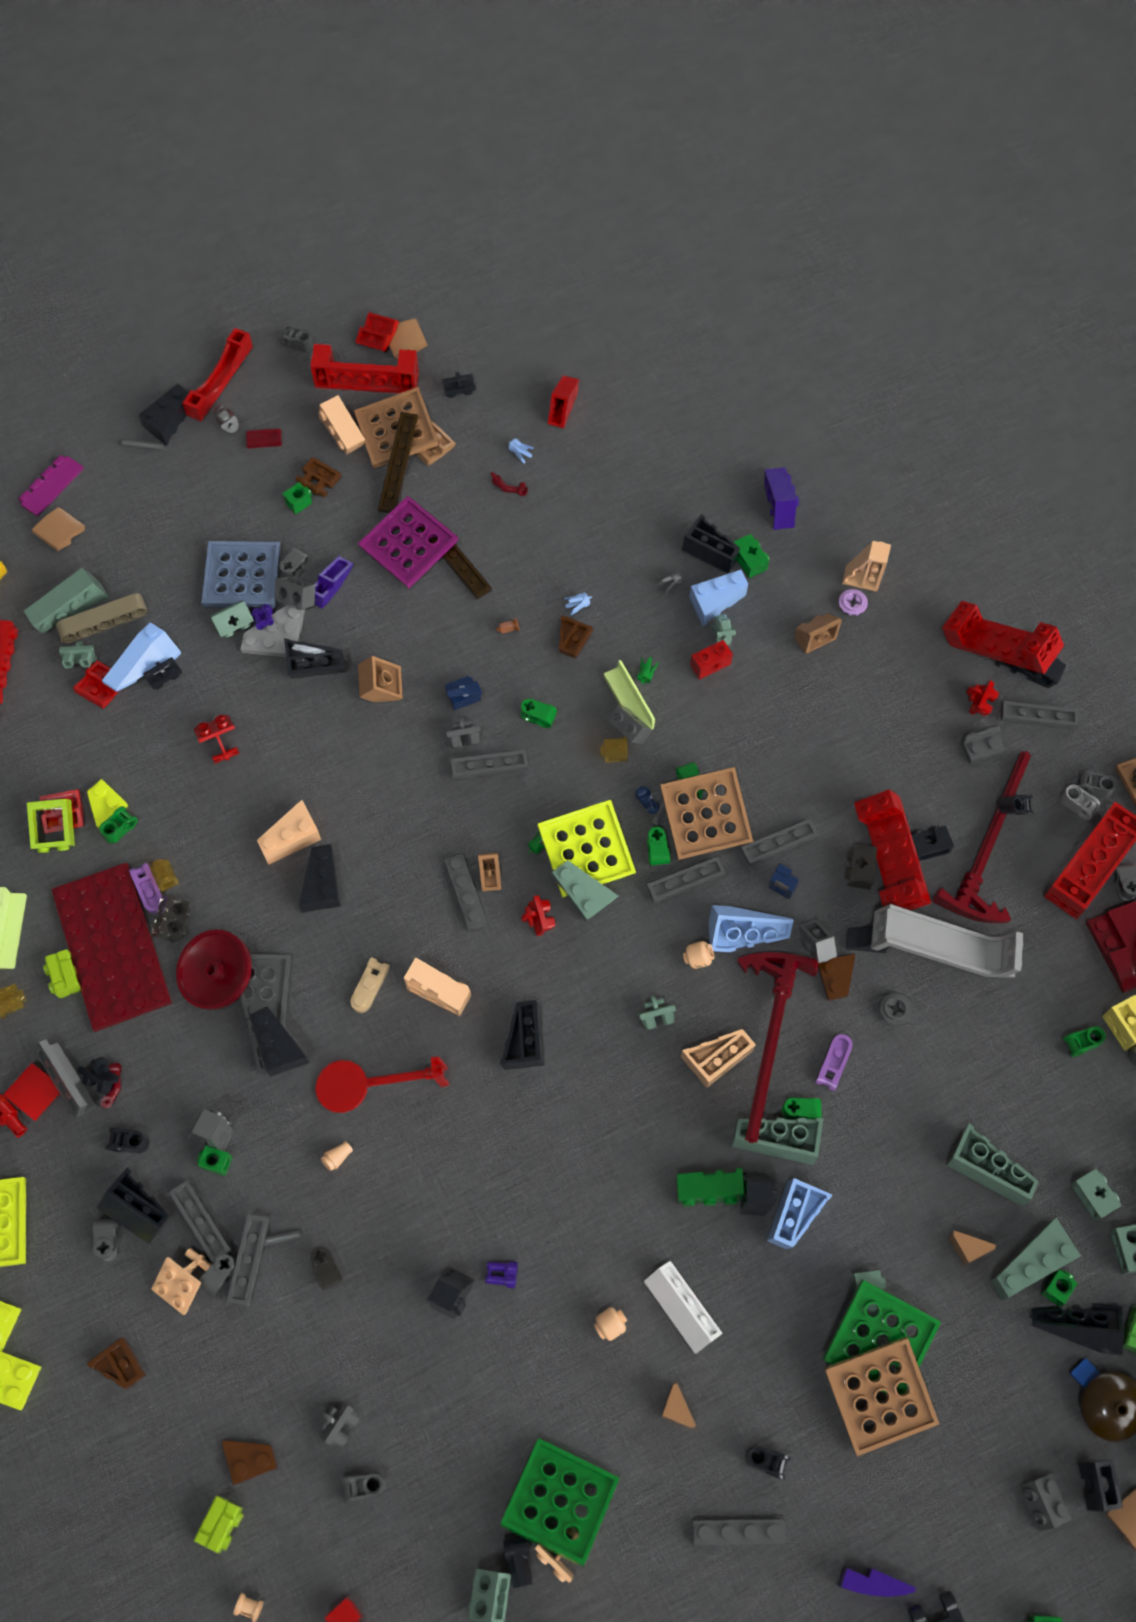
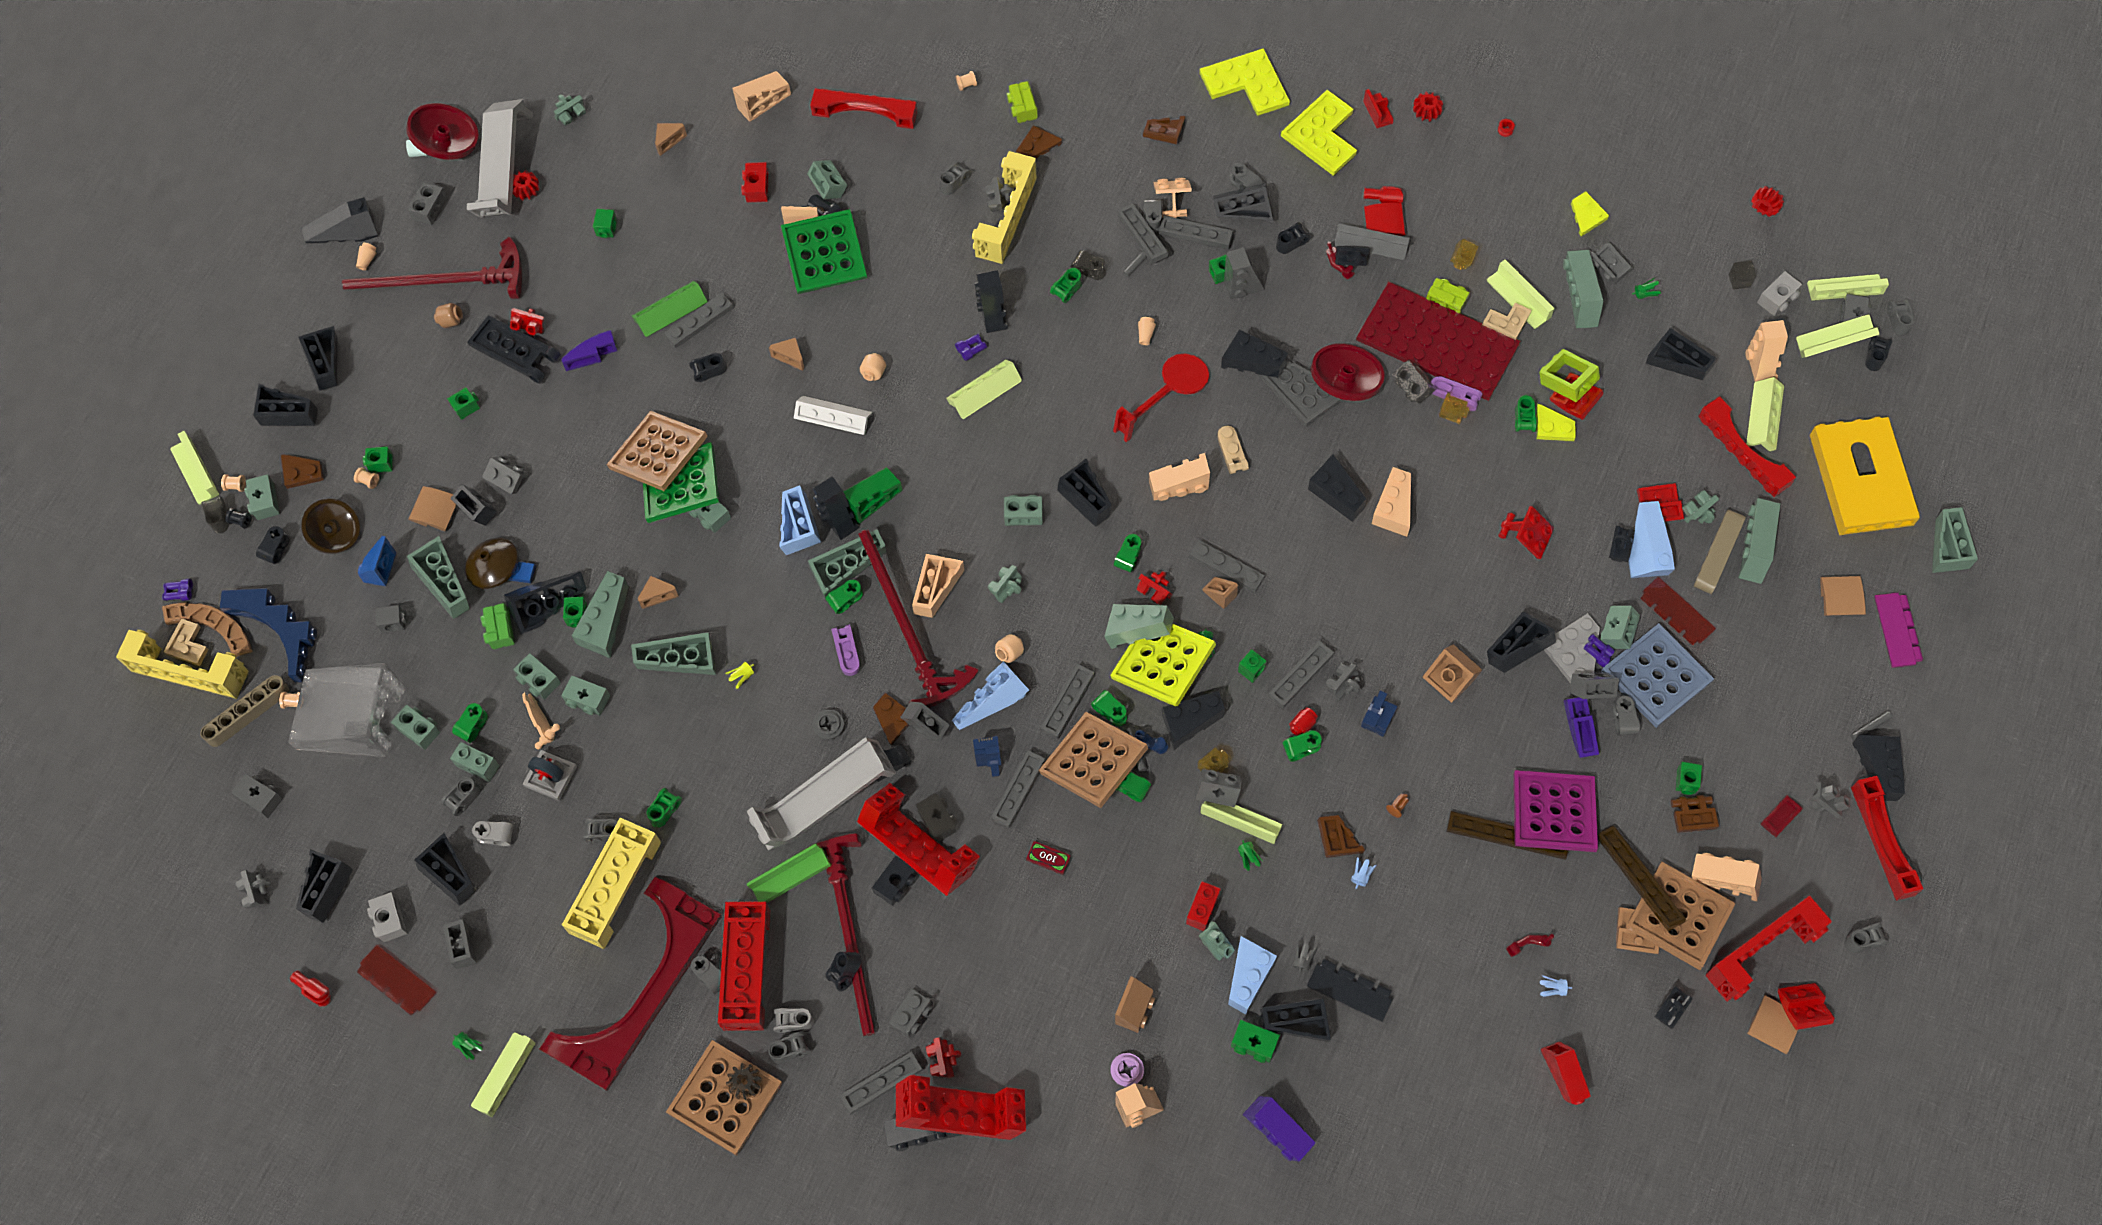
camera: 145 degrees right, 0 degrees up
(41, 908) = (1508, 325): none -> tan plate
(178, 605) = (1682, 614): none -> clear red windscreen
(295, 1420) = (993, 242): none -> light yellow plate
(365, 1262) = (1066, 288): none -> green piece
(521, 795) = (1252, 666): none -> green brick
(522, 728) = (1303, 721): none -> red brick
(525, 1218) = (985, 388): none -> yellowish green panel
(537, 959) = (1127, 555): none -> green piece
(593, 1063) = (1023, 515): none -> sand green brick
(595, 789) = (1192, 717): none -> black wedge
(654, 544) = (1350, 993): none -> black windscreen
(759, 1573) = (670, 308): none -> bright green panel
(795, 777) = (1048, 858): none -> dark red tile
(936, 1108) = (745, 670): none -> neon yellow piece
(1012, 906) = (789, 873): none -> bright green panel

